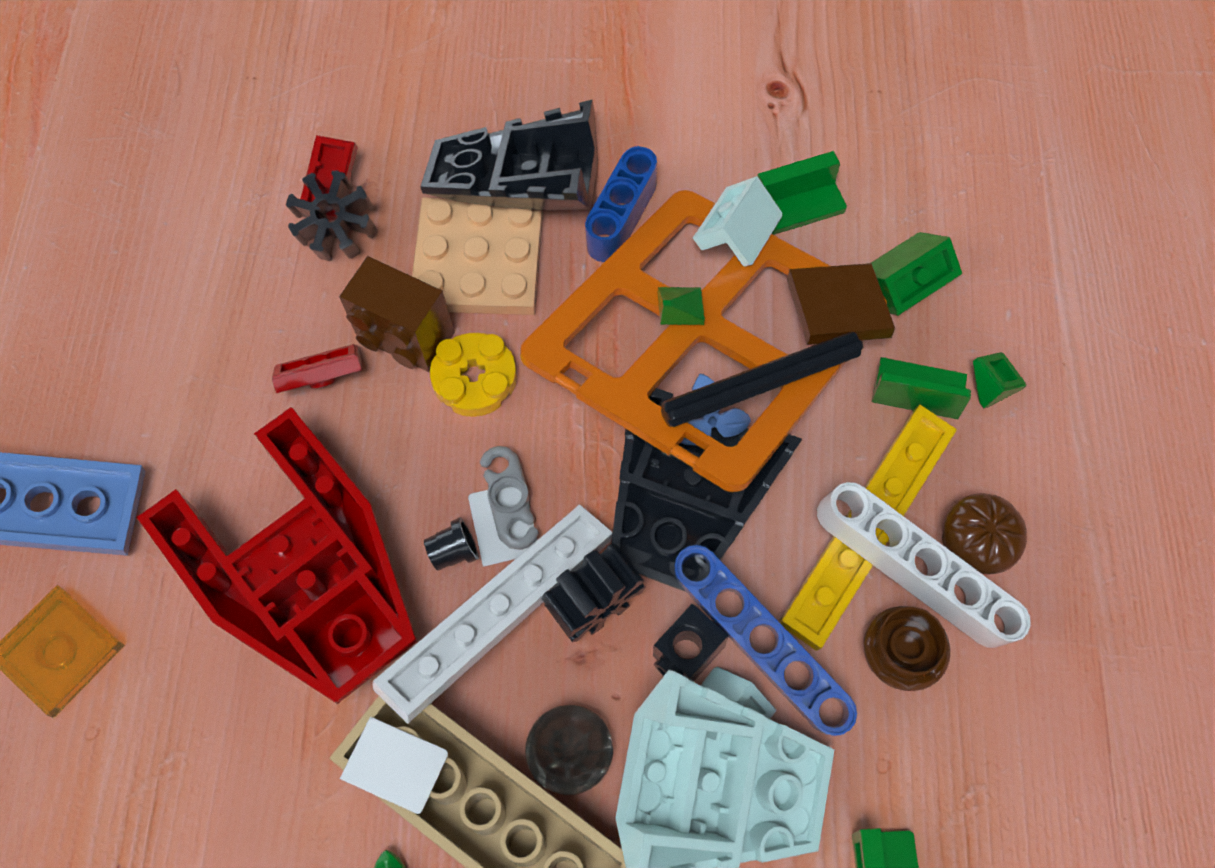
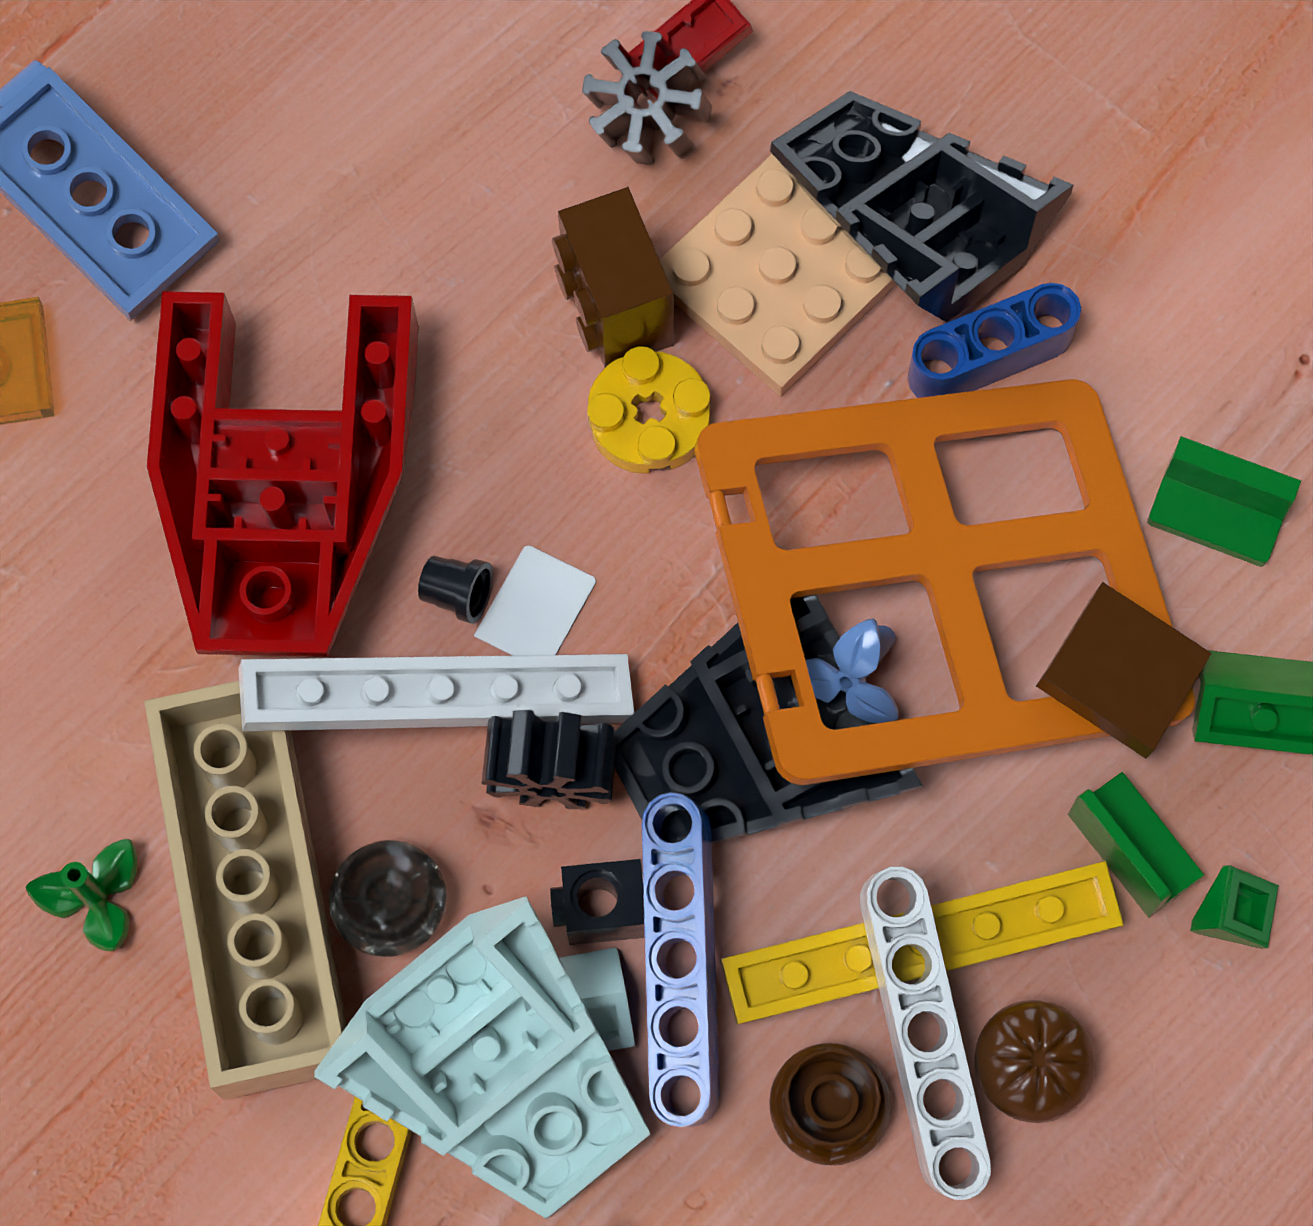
camera: 40 degrees right, 5 degrees up
(317, 369) = (485, 269): red plate -> none
(394, 765) = (199, 762): white sticker -> none
(506, 516) = (540, 602): light grey piece -> none
(680, 306) = (932, 522): green slope -> none
(742, 219) = (1107, 478): light aqua panel -> none
(760, 379) = (937, 682): black axle -> none

